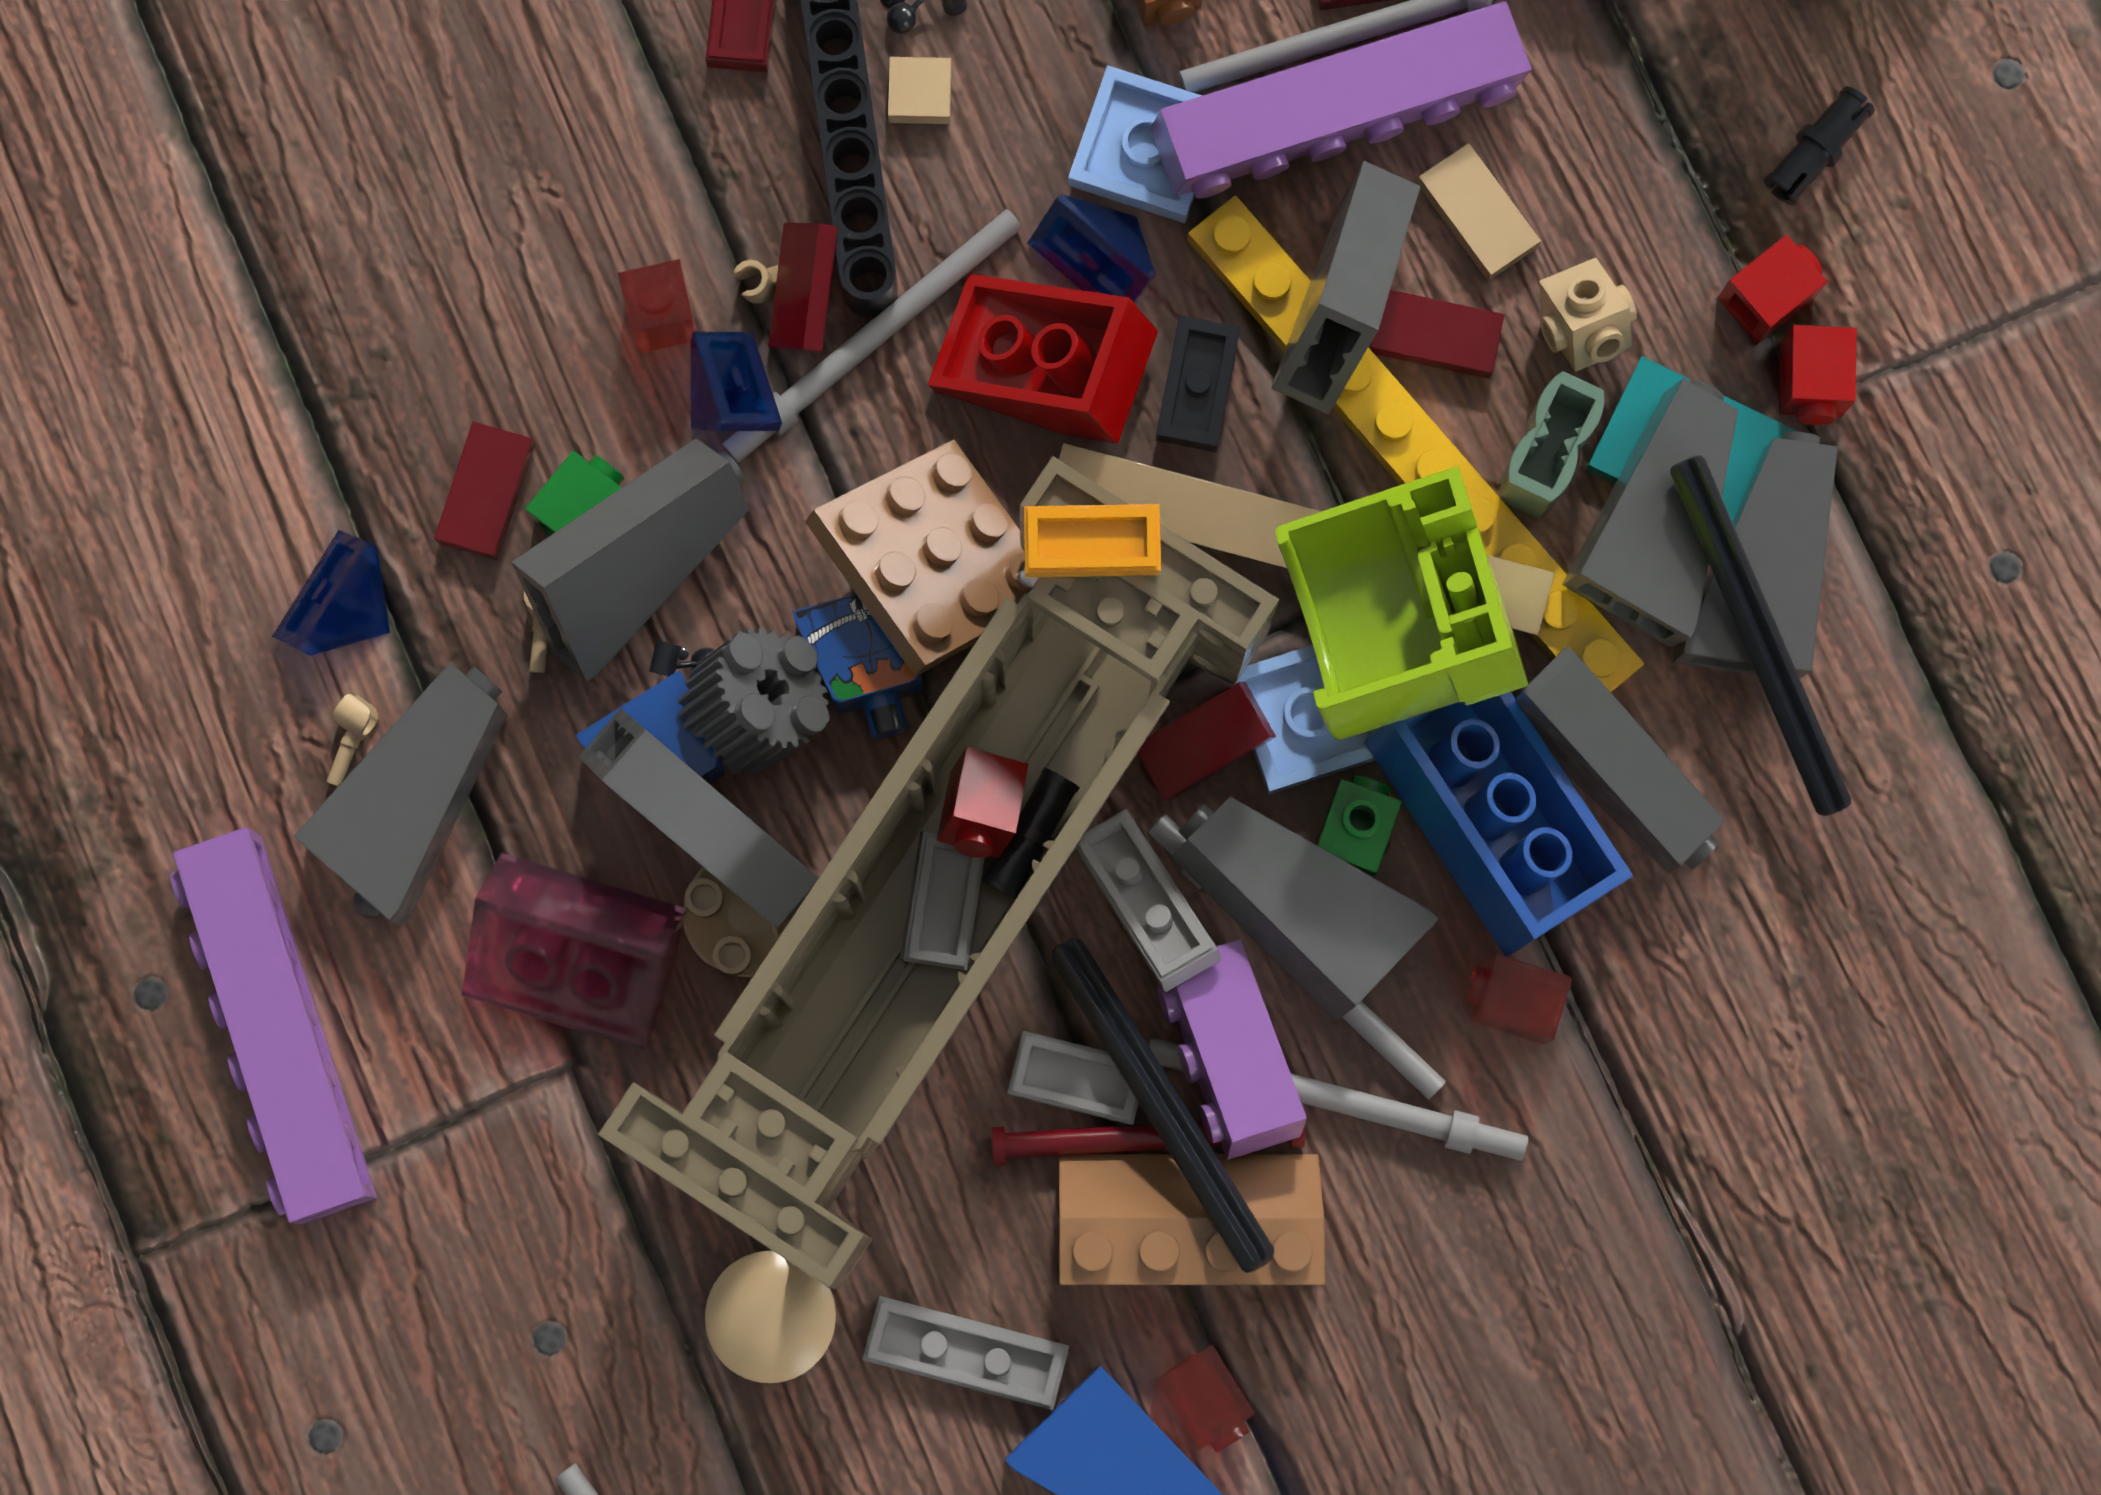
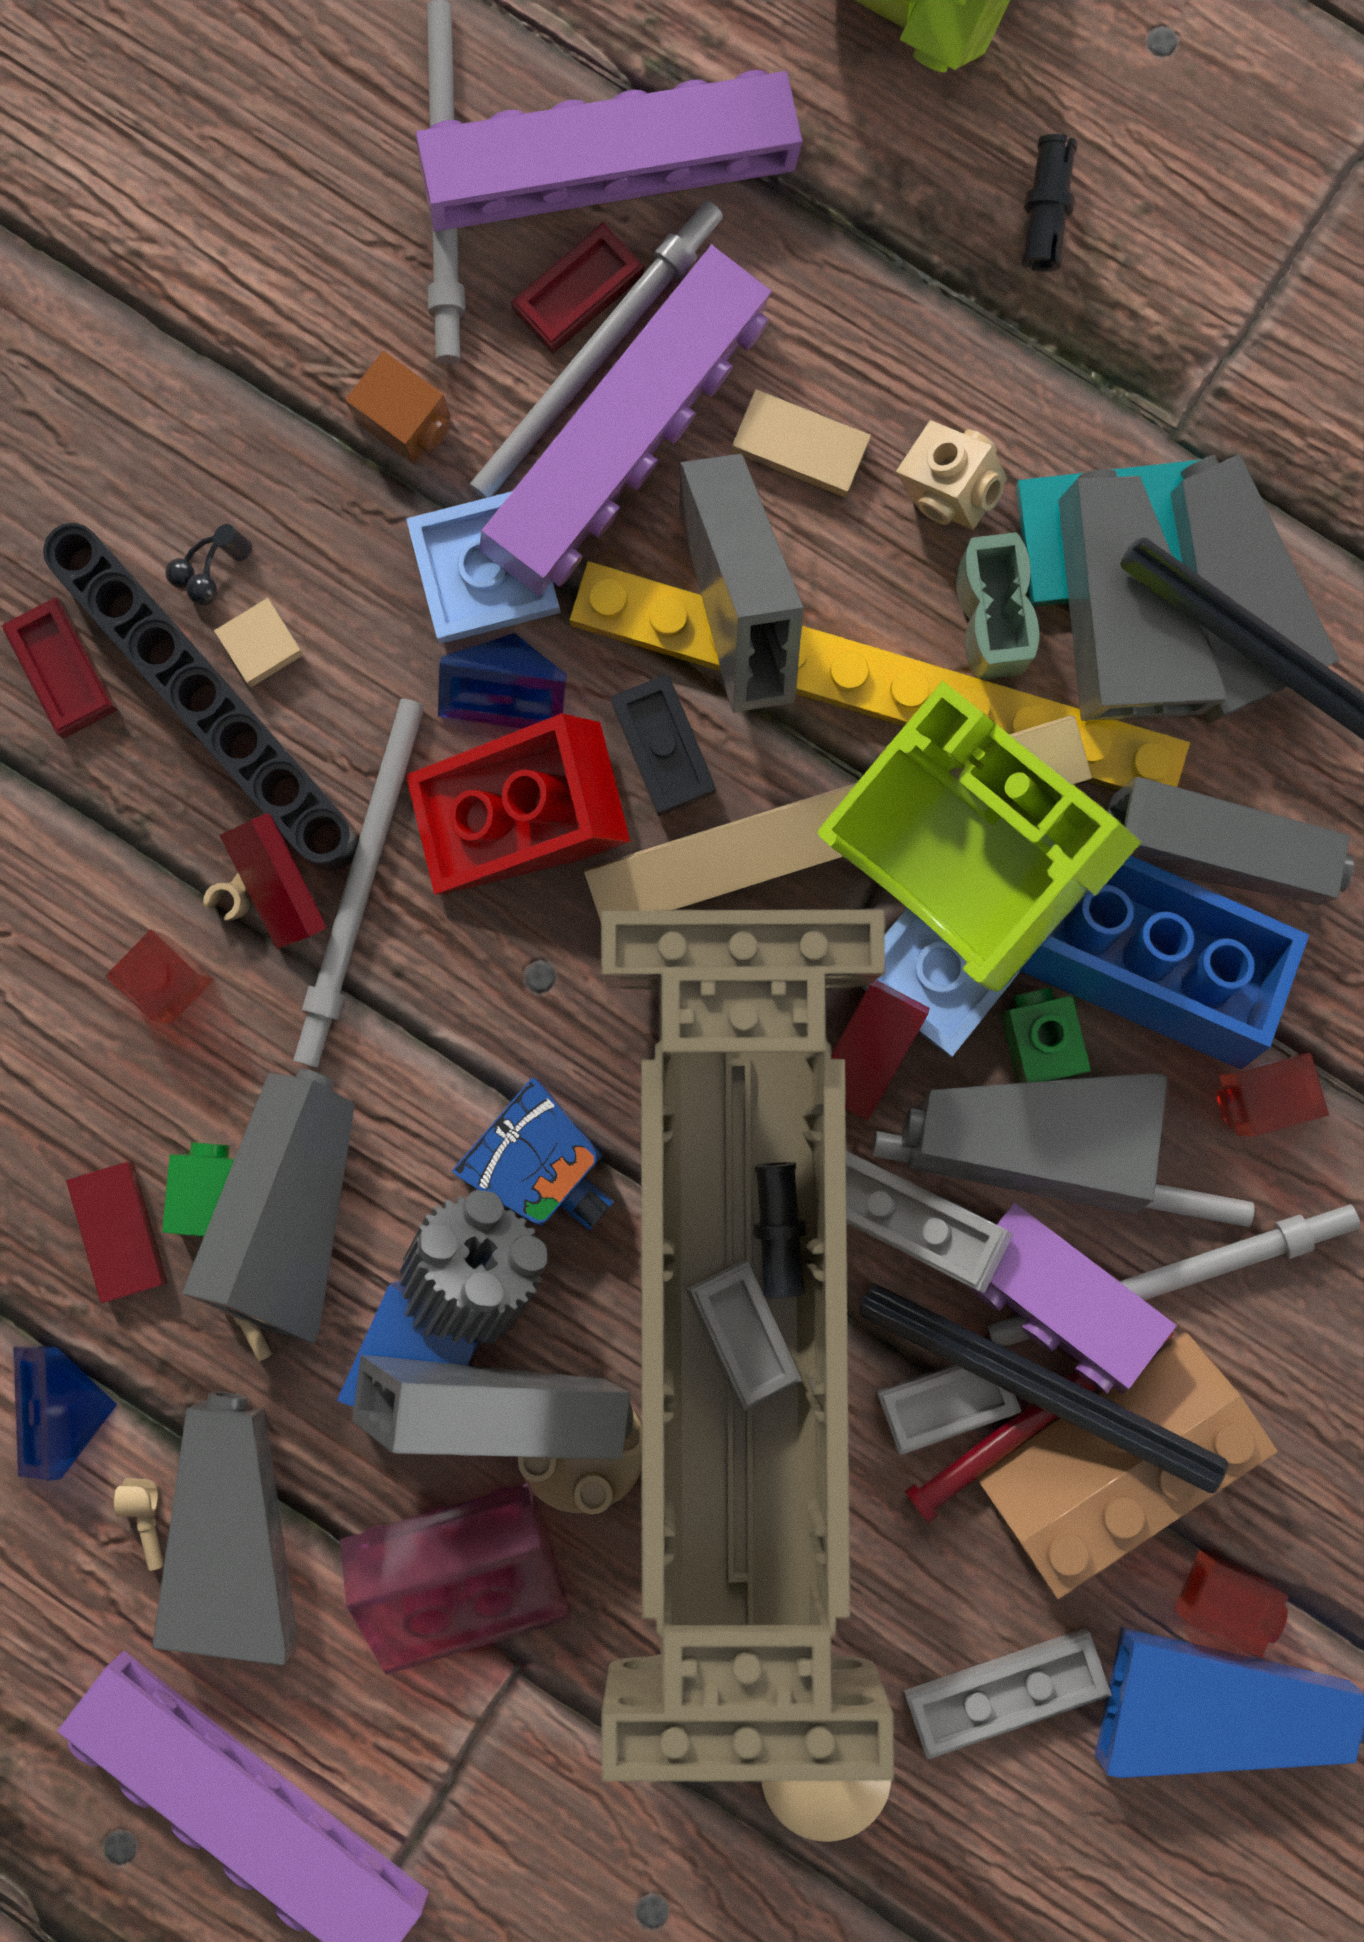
camera: 30 degrees left, 5 degrees up
(667, 654) = (367, 1276): black piece -> none
(730, 384) = (267, 1005): clear blue slope -> none
(926, 554) = (538, 1045): plate -> none
(982, 803) = (726, 1236): brick -> none
(1092, 540) = (688, 965): light orange tile -> none
(1438, 334) = (843, 567): dark red tile -> none
(1773, 288) = (1092, 351): red brick -> none
(1817, 373) = (1174, 400): red brick -> none

